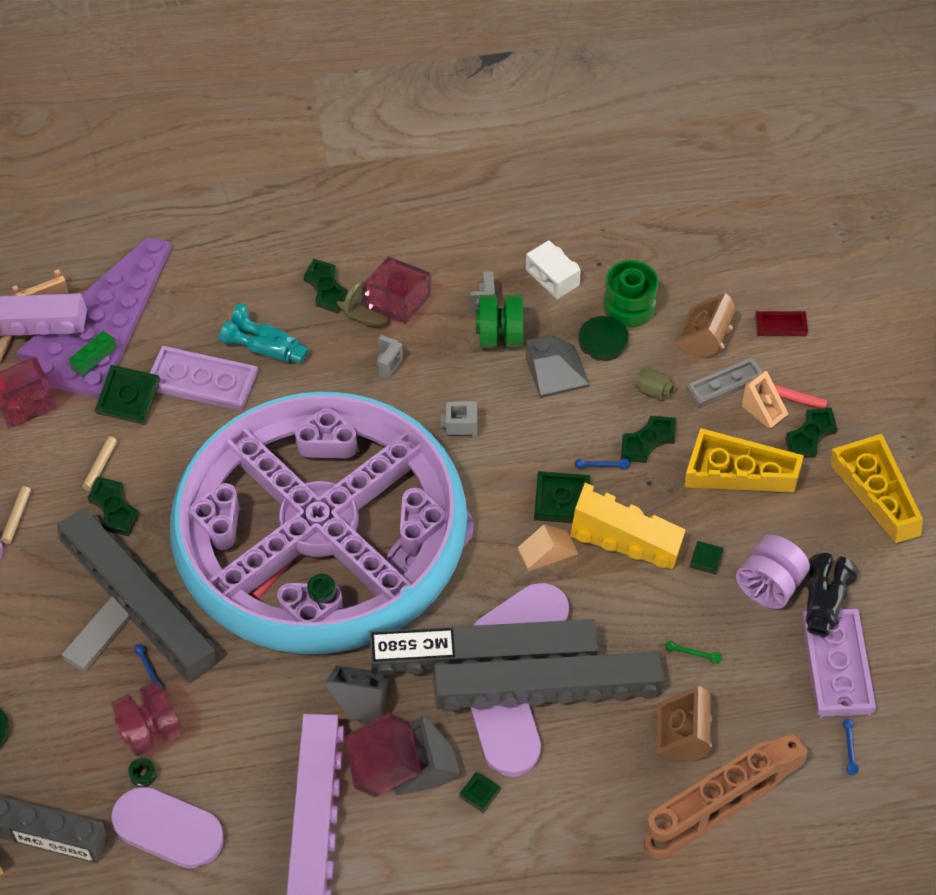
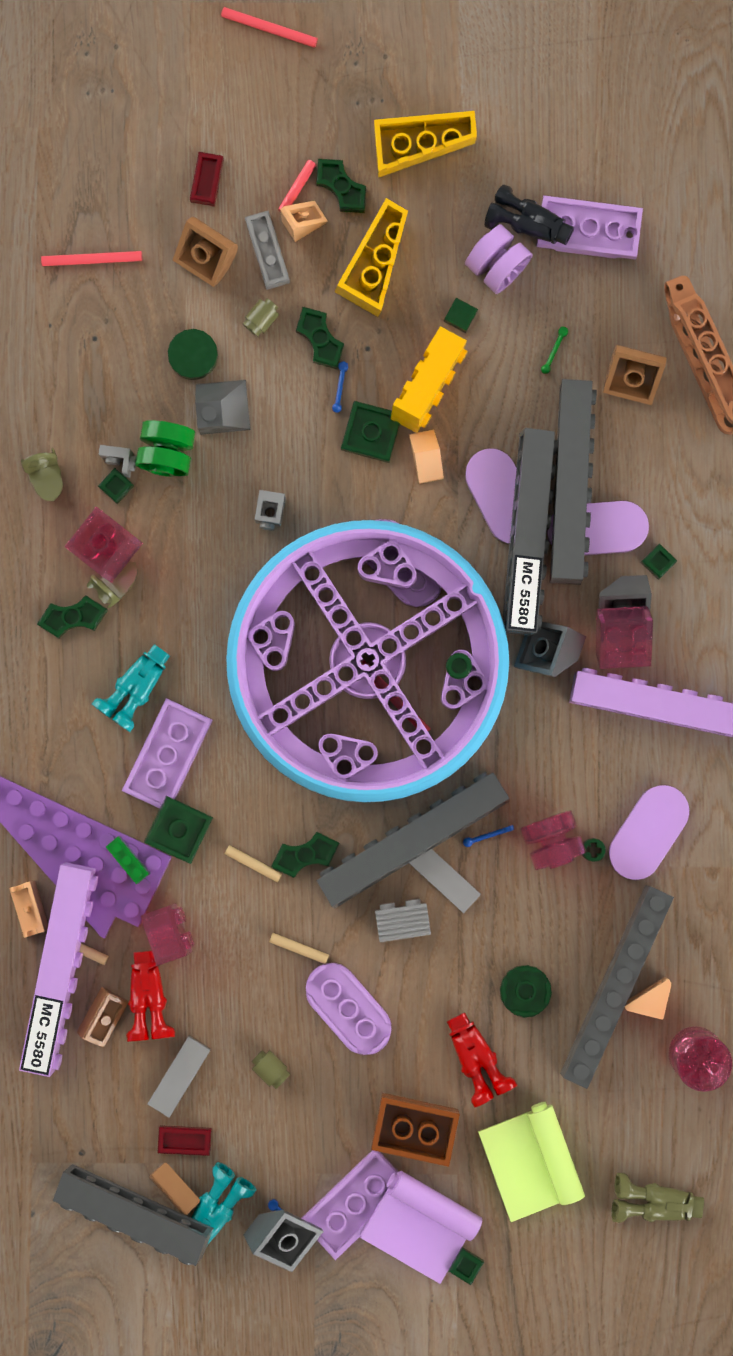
camera: 80 degrees left, 30 degrees up
(48, 597) = (402, 921): none -> light grey brick
(390, 356) = (184, 568): light grey bracket -> none
(457, 299) = (116, 485): none -> dark green tile
(458, 241) = (44, 474): none -> olive piece
(553, 269) = (100, 384): white brick -> none
(631, 292) = (152, 314): green wheel -> none
(675, 249) = (93, 258): none -> coral bar
(852, 768) = (687, 244): blue hinge -> none

